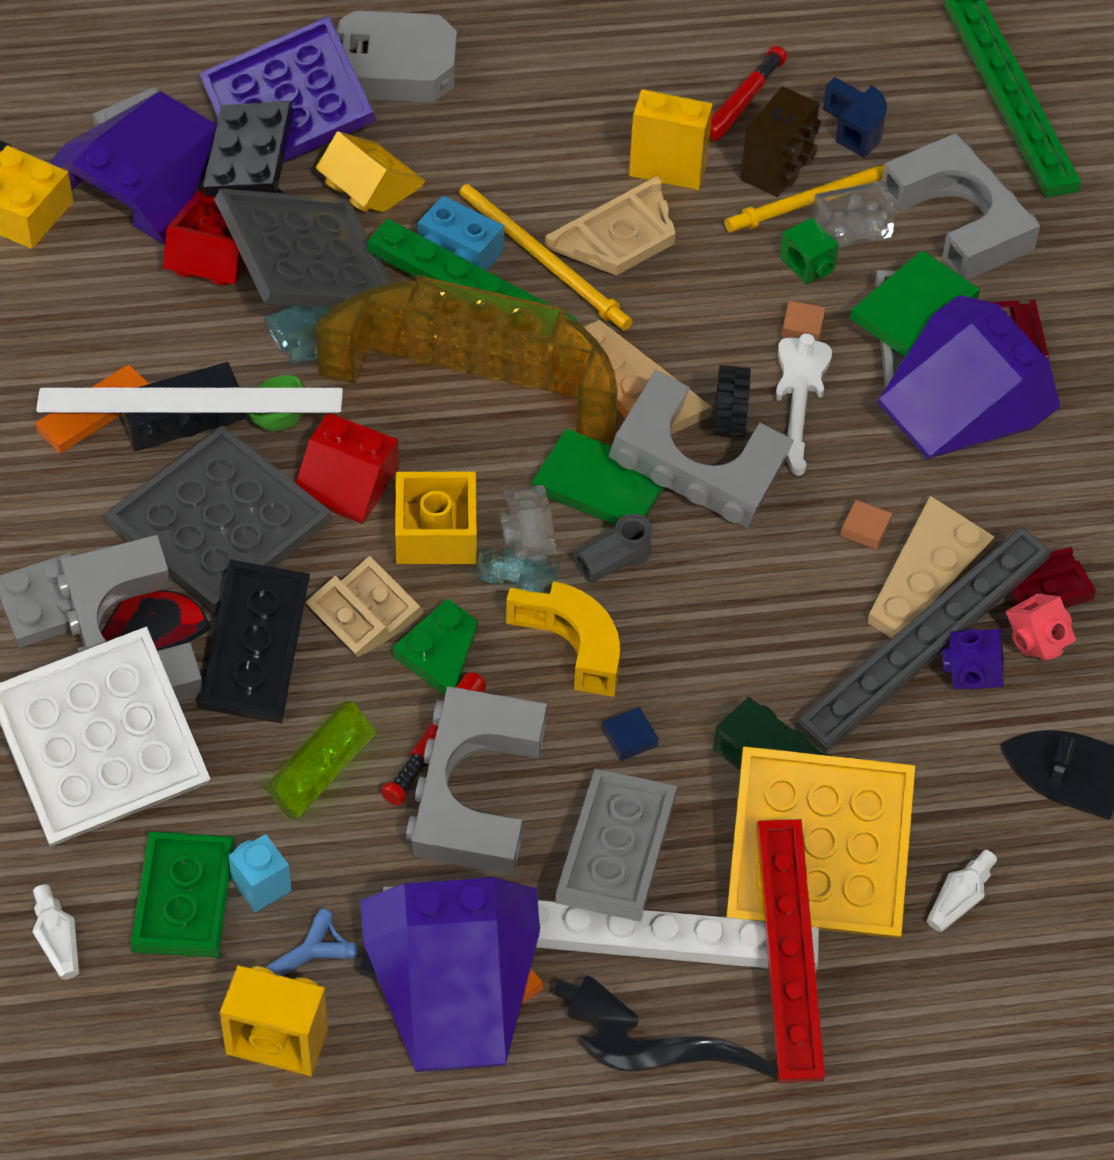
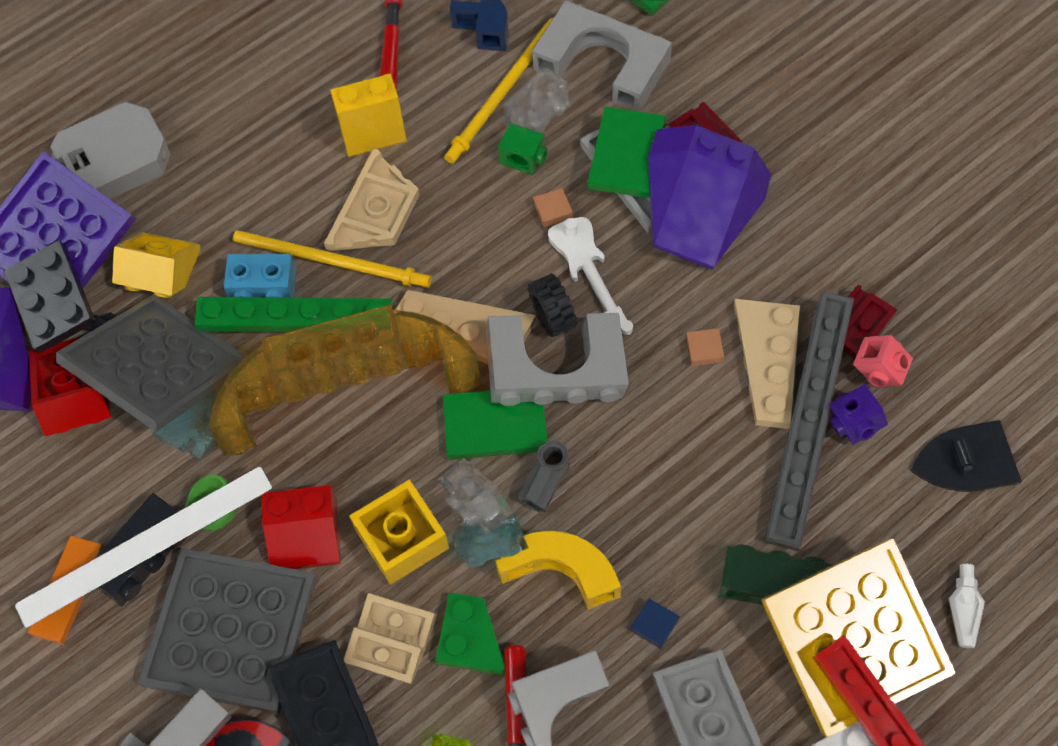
camera: 25 degrees left, 10 degrees up
(780, 141) = (448, 73): dark brown brick -> none

